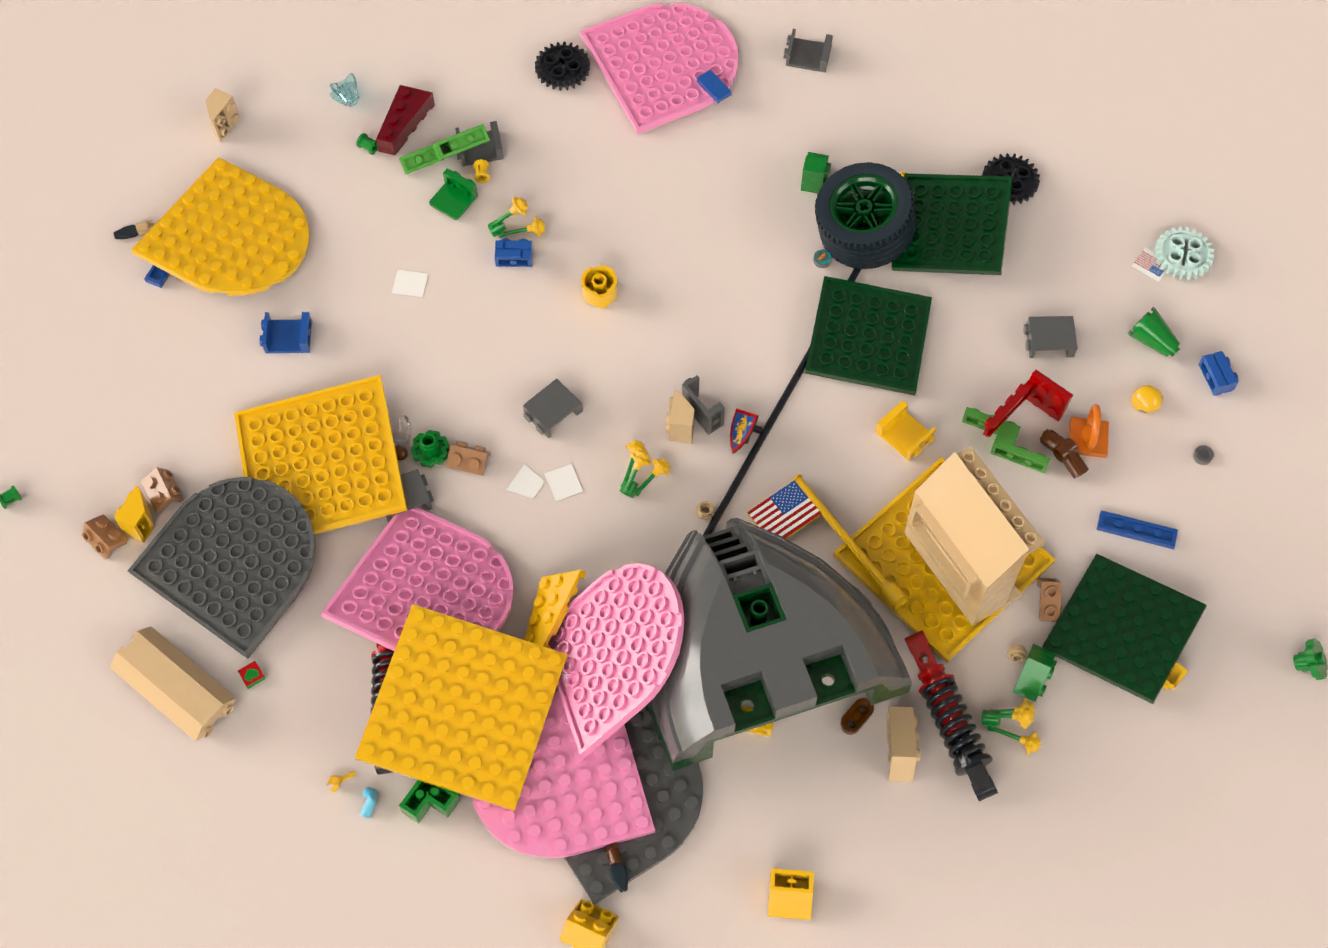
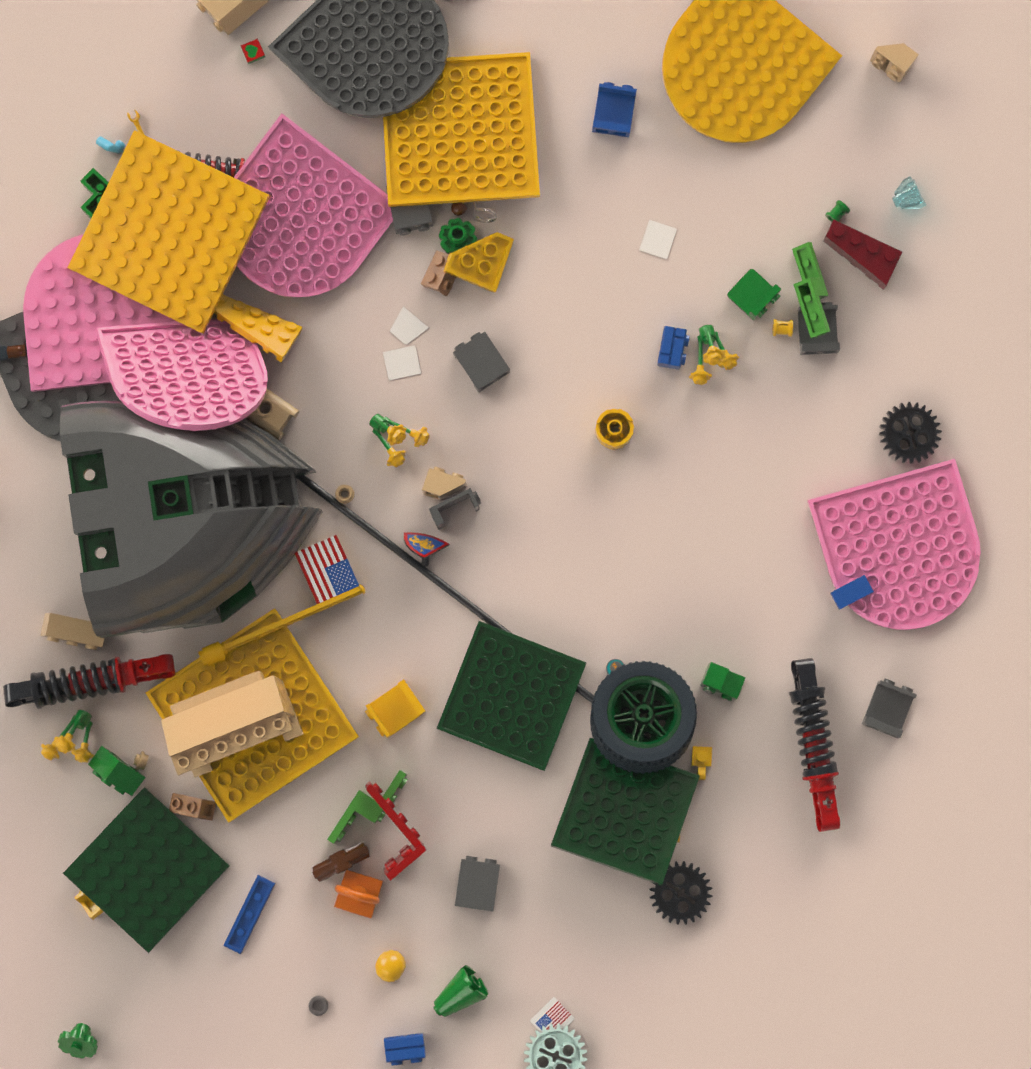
camera: 100 degrees right, 20 degrees up
(452, 420) = (481, 261): none -> yellow plate
(852, 93) = (820, 768): none -> black piece

